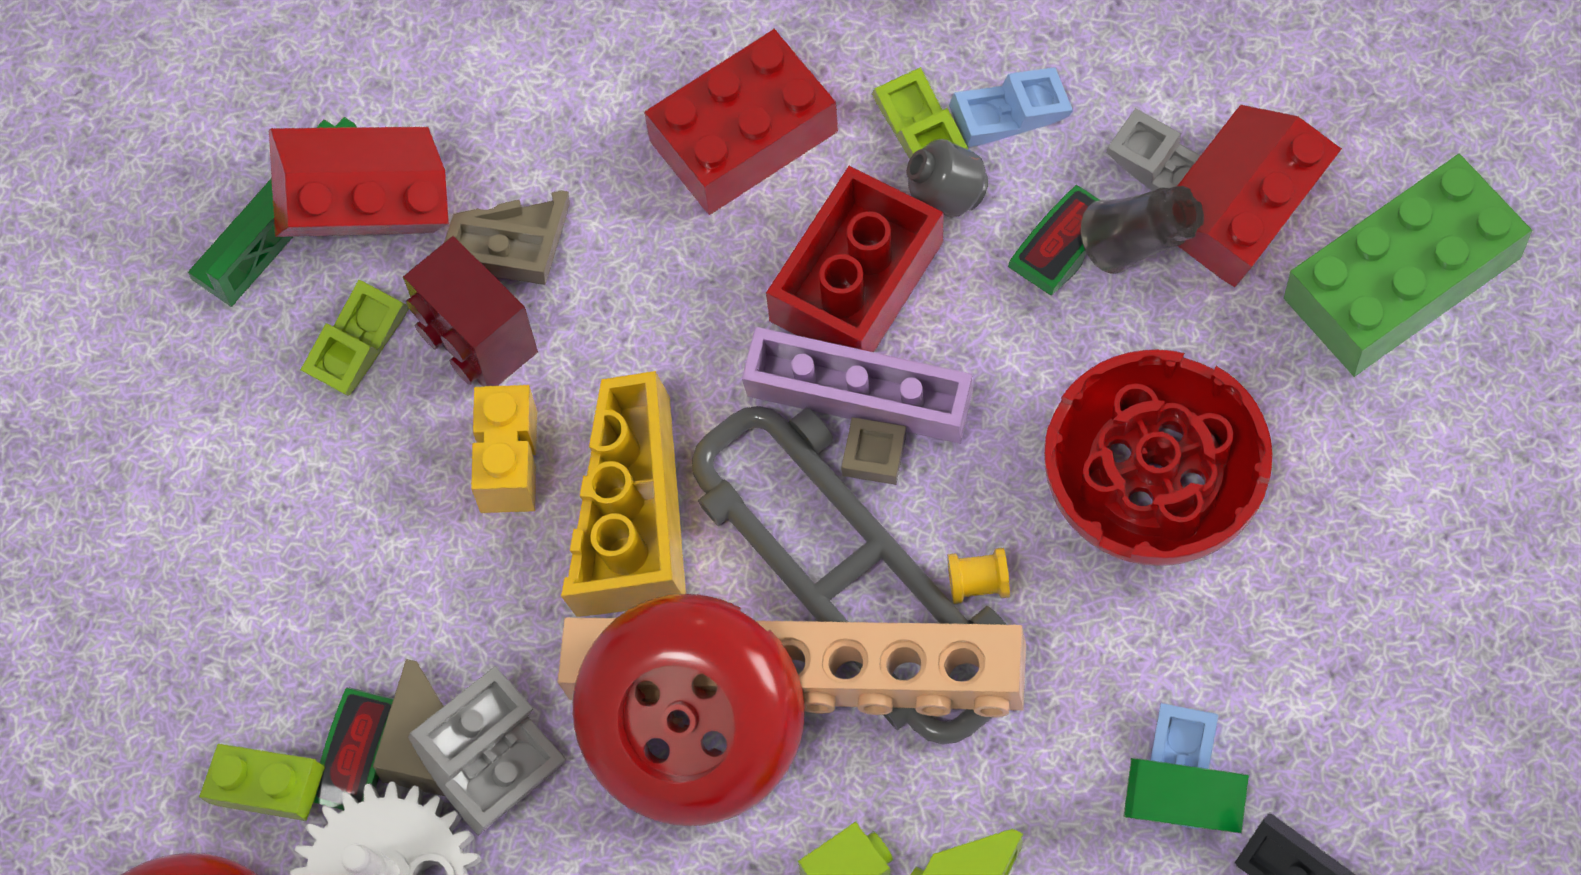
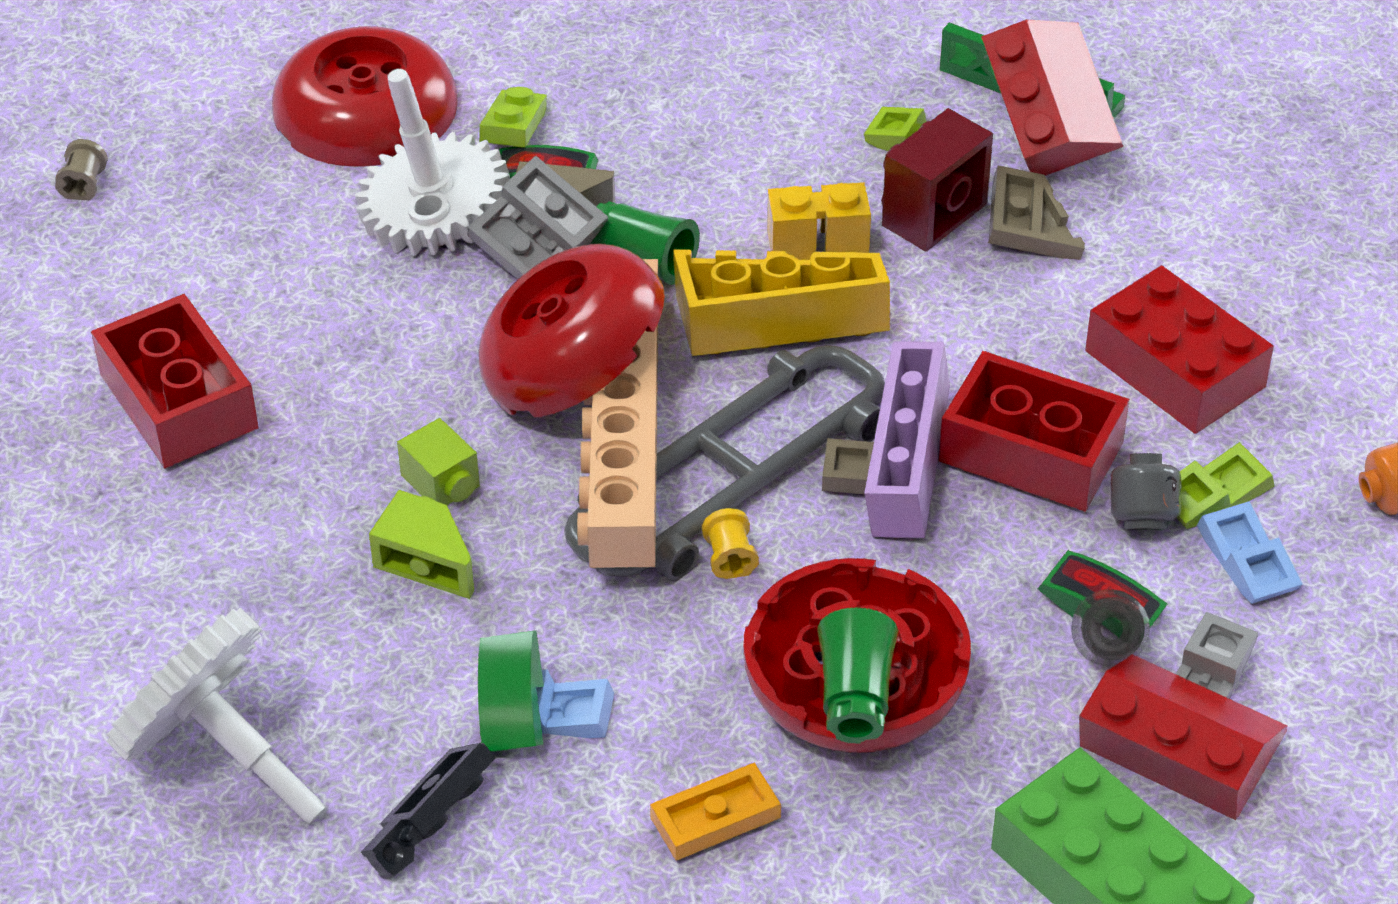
camera: 80 degrees right, 20 degrees down
(506, 633) = (648, 235): none -> green plant
(1230, 446) = (856, 671): none -> green plant
(1324, 611) = (715, 811): none -> light orange plate

